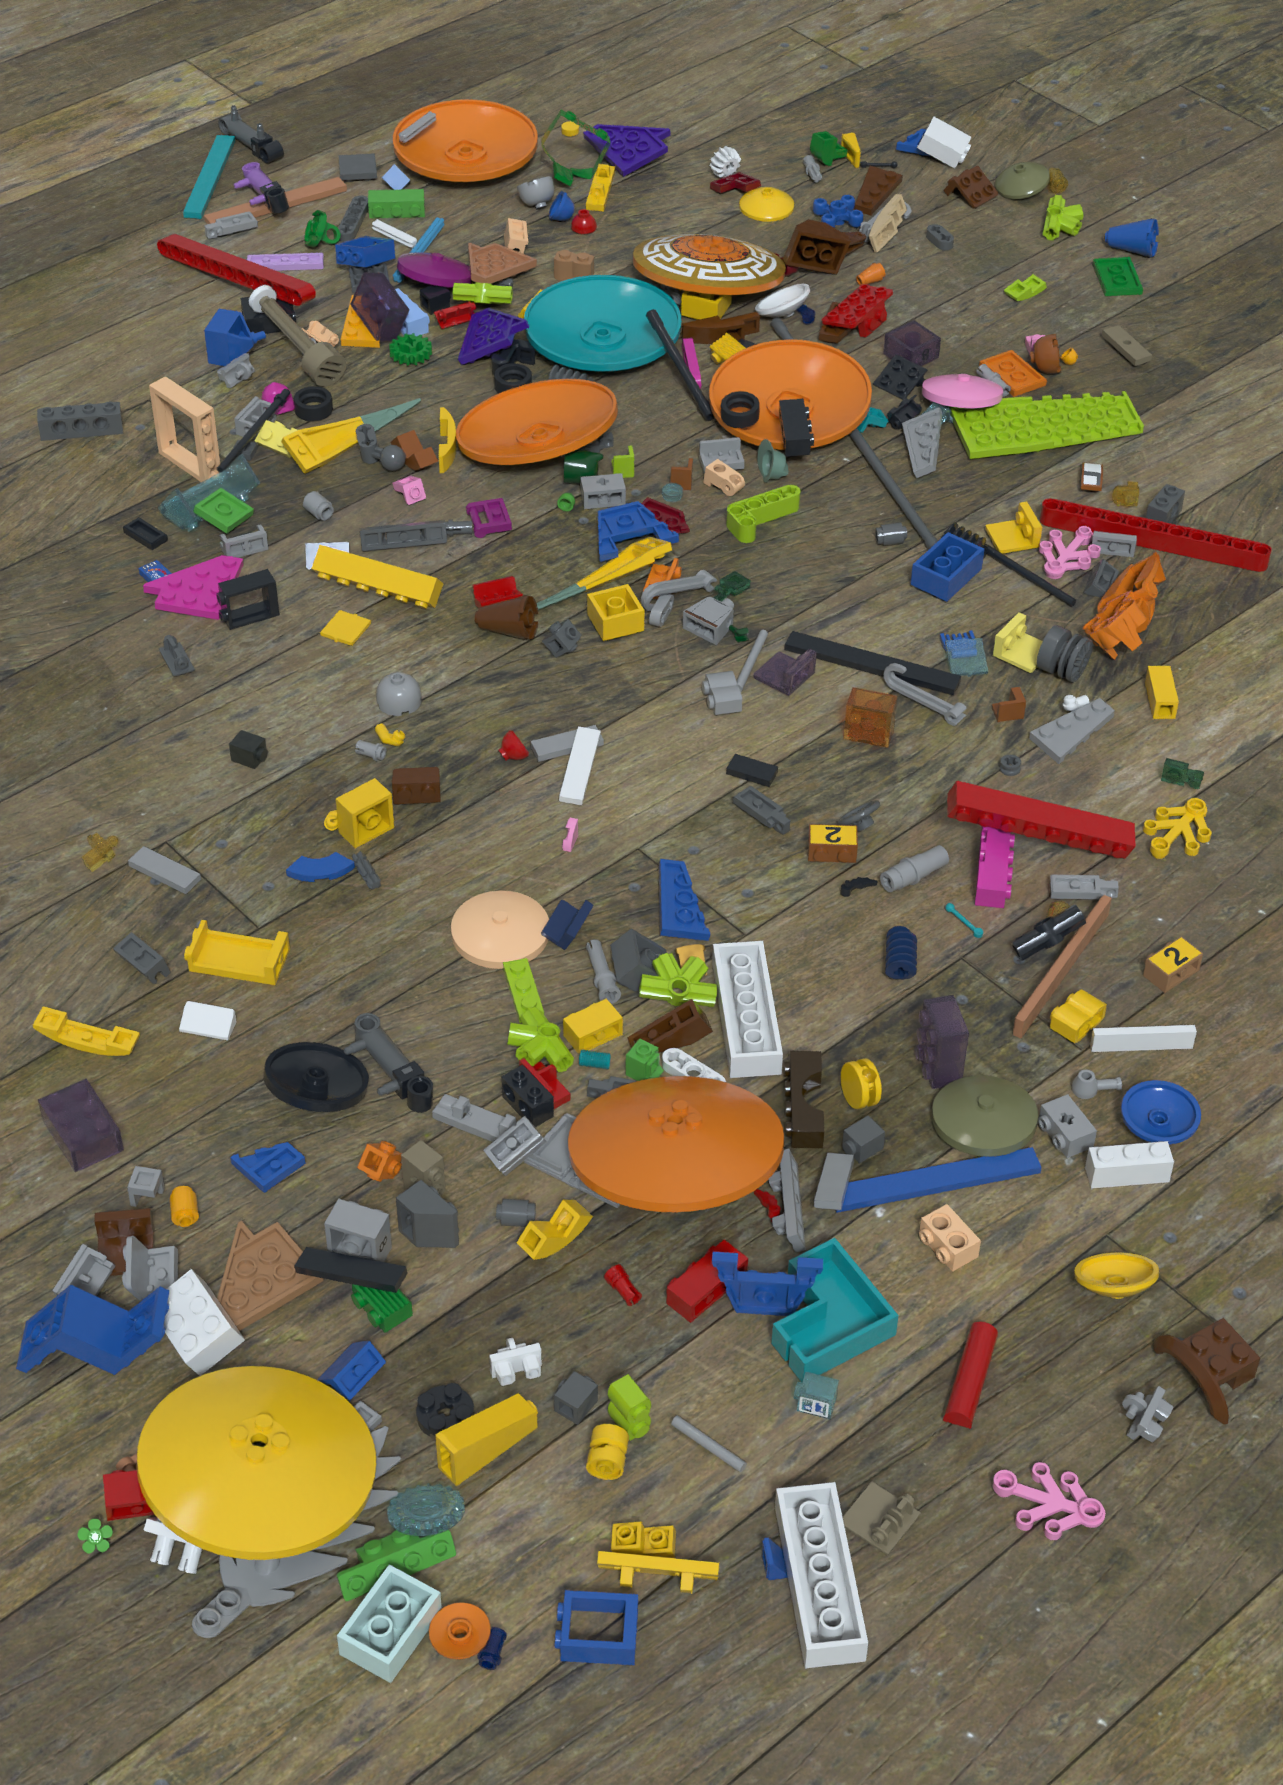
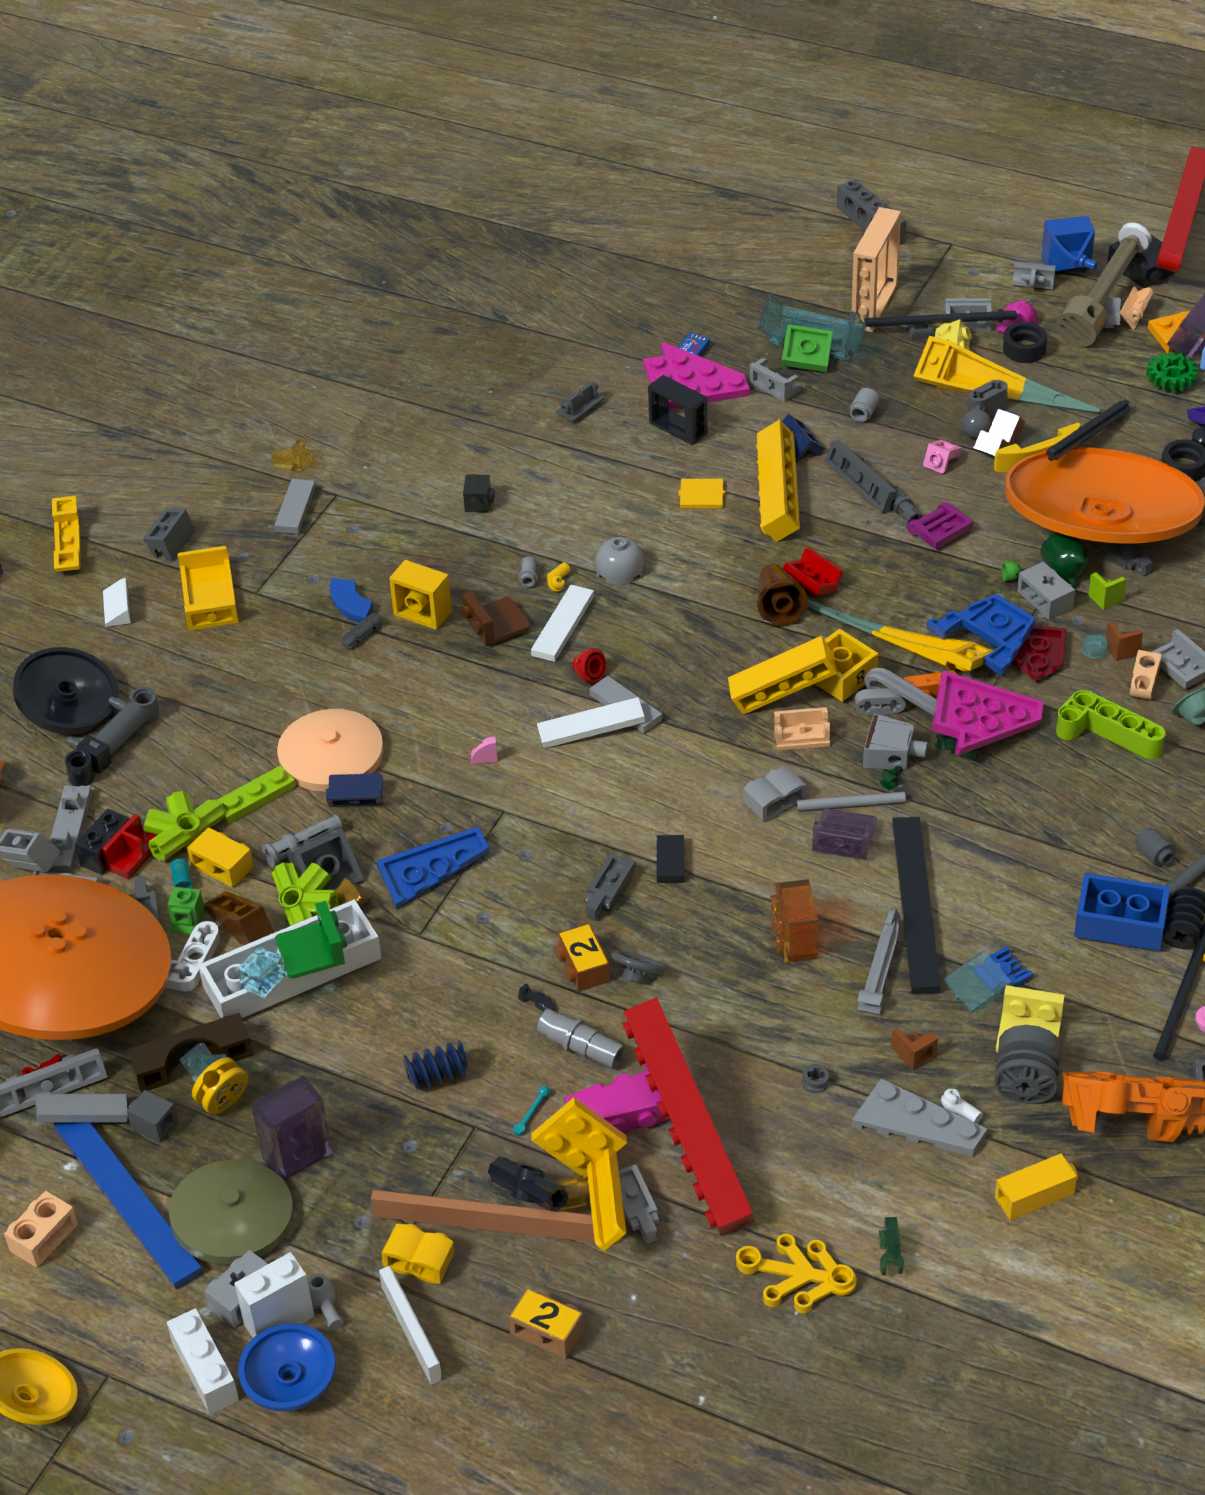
camera: 70 degrees right, 0 degrees up
(145, 533) = (746, 318): black tile -> none
(445, 750) = (562, 623): none -> white tile
(455, 412) = (1088, 430): none -> black axle
(562, 638) = (765, 637): dark grey brick -> none
(616, 639) = (782, 675): none -> yellow brick
(664, 658) = (801, 728): none -> light nougat hinge
(716, 560) = (981, 712): none -> dark pink wing
(760, 972) = (314, 945): none -> green bracket
(773, 1013) = (261, 971): none -> clear light blue brick
(828, 1091) = (198, 1060): none -> clear light blue bracket
(1037, 887) = (589, 1148): none -> yellow bracket
(1102, 1097) = (274, 1296): none -> white brick

